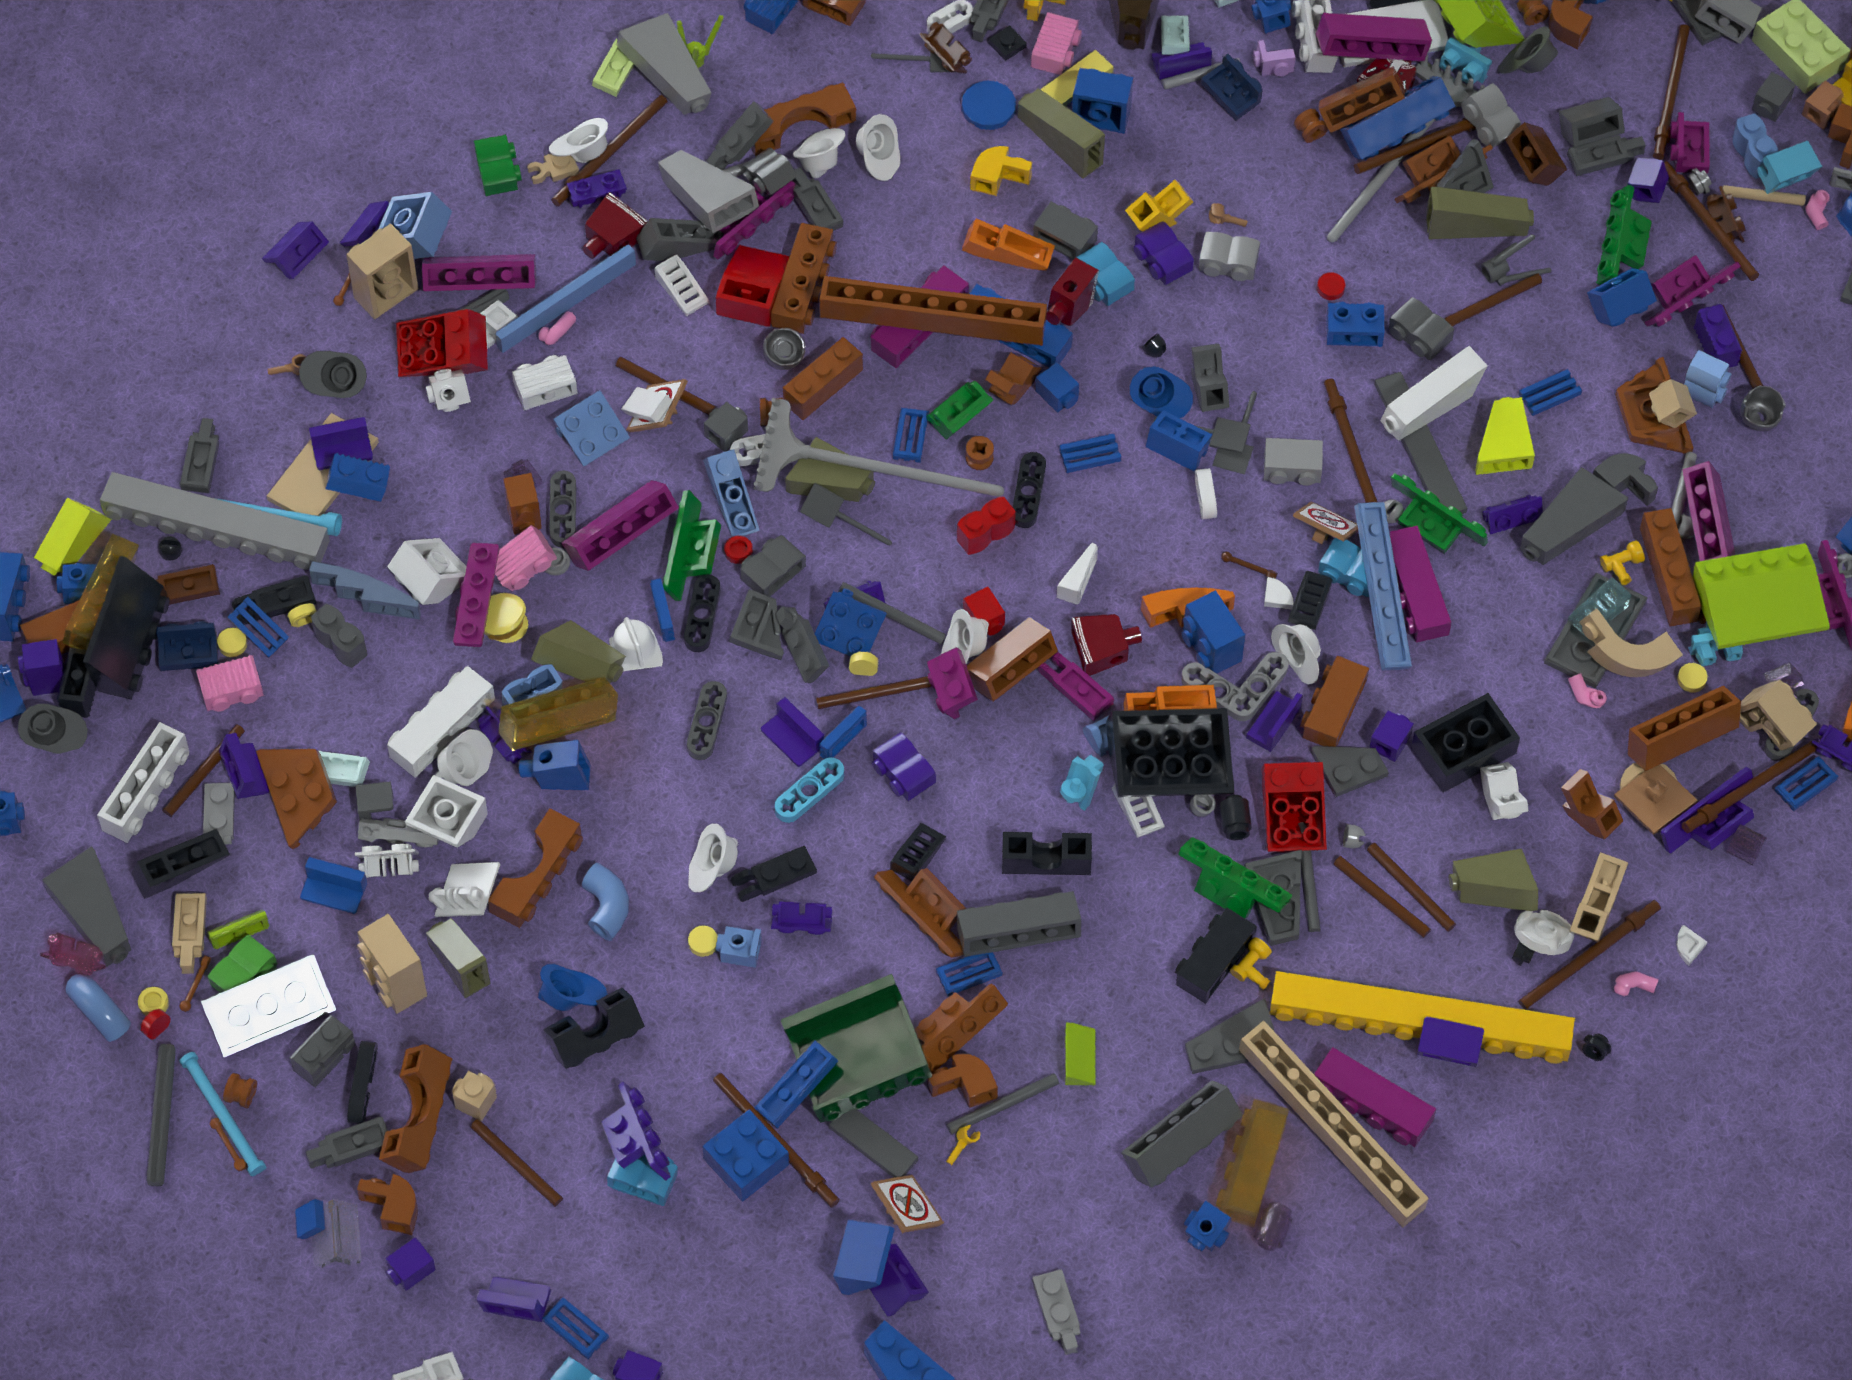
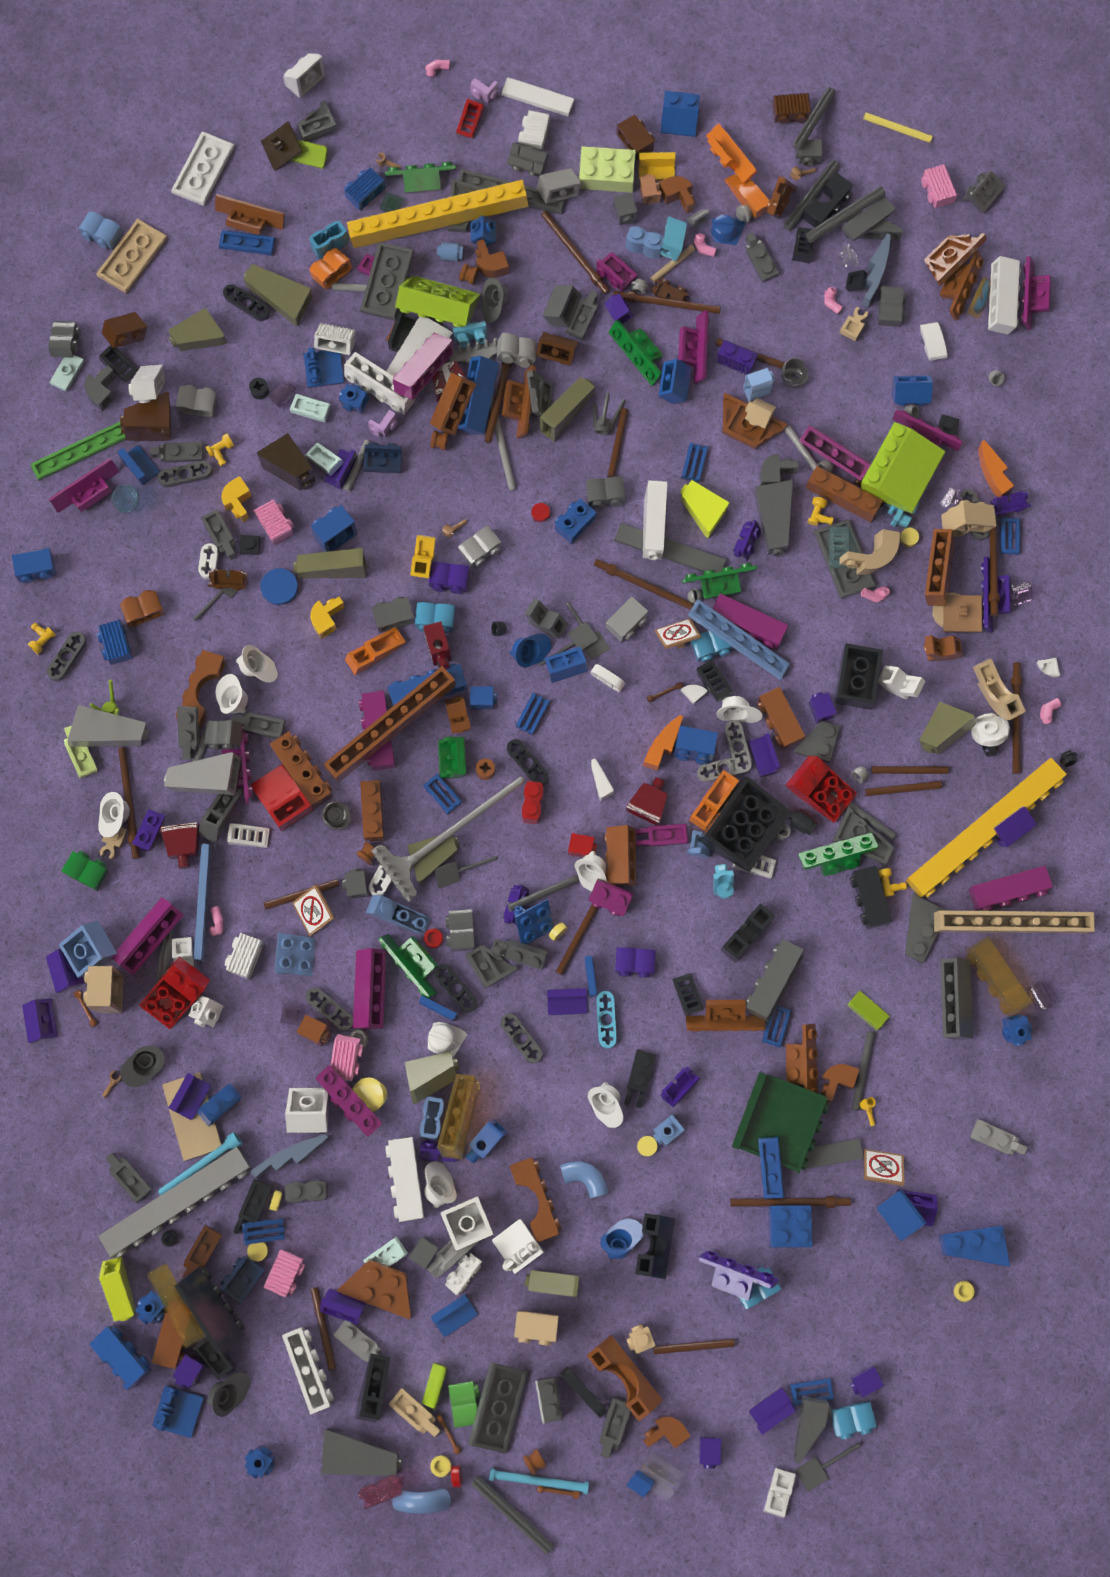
camera: 50 degrees left, 15 degrees up
(536, 1345) = (811, 1422): none -> dark grey slope
(647, 404) = (309, 915): white tile -> none
(1063, 86) = (303, 533): light yellow tile -> none

